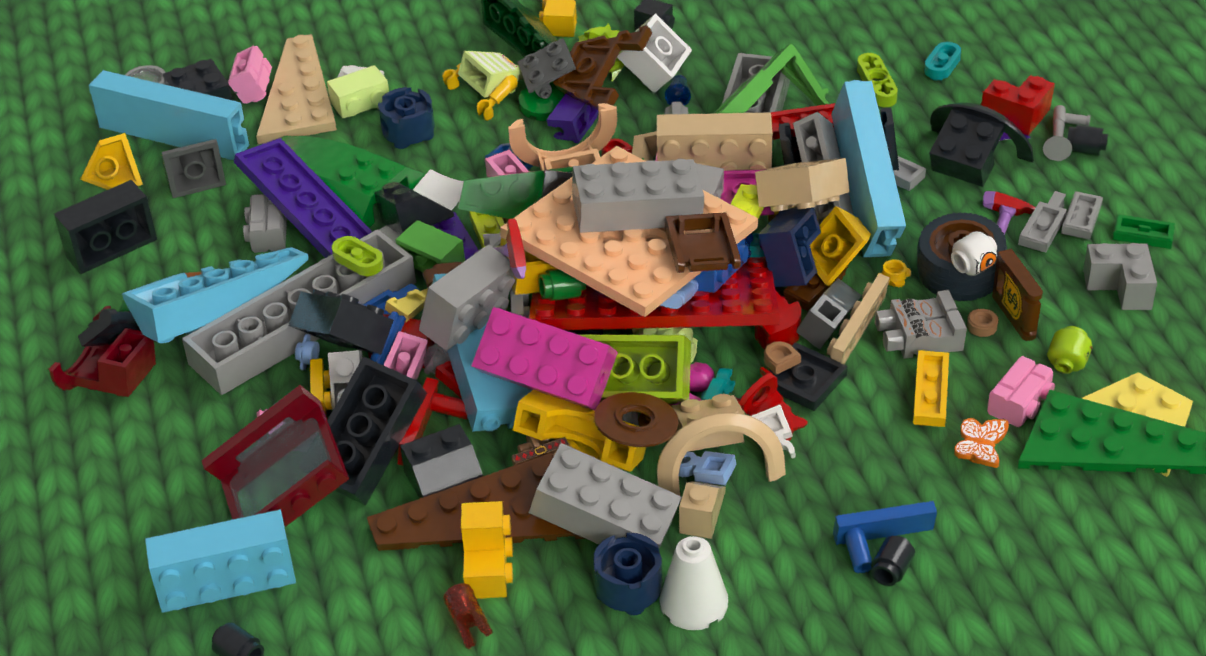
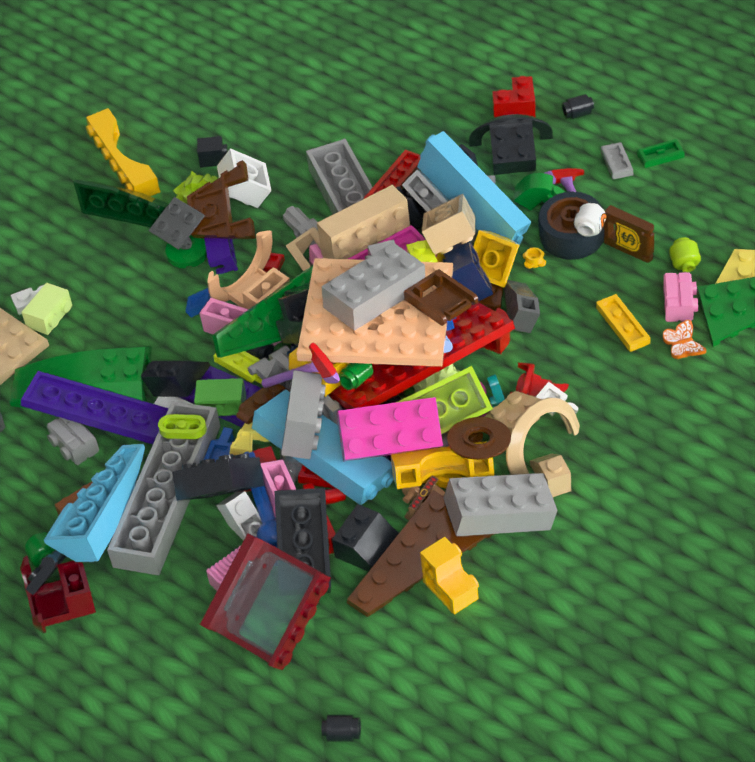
camera: 30 degrees left, 5 degrees up
(220, 561) = (283, 680): medium azure brick -> none
(306, 350) = (194, 513): light blue plate -> none
(320, 383) = (226, 531): yellow plate -> none
(406, 117) = (103, 310): dark blue brick -> none
(440, 189) = (173, 350): white sticker -> none
(466, 612) = (467, 622): clear red hinge -> none
(488, 74) = (133, 249): torso -> none
(628, 572) = (549, 539): dark blue brick -> none
(678, 91) = (279, 199): clear blue cone -> none
(693, 586) = (596, 526): white cone -> none
(710, 468) = (537, 445): light blue plate -> none
(780, 357) = (517, 350): medium nougat tile -> none
(791, 65) = (349, 172): bright green hinge -> none
(811, 379) = (543, 351): black plate -> none
(861, 316) = (547, 321): tan plate -> none
(878, 71) = (393, 120): lime beam -> none
(880, 523) = (658, 433): blue piece -> none
(892, 560) = (694, 444): black brick -> none
(922, 325) = (584, 284): light grey hips -> none
(942, 60) = (437, 92): teal plate -> none
(955, 198) = (534, 189): none -> green brick
(982, 322) = (614, 263): medium nougat tile -> none
(1044, 223) = (599, 177): light grey hinge -> none
(1058, 147) = (564, 120): light grey piece -> none
(1123, 269) = (677, 185): light grey brick -> none

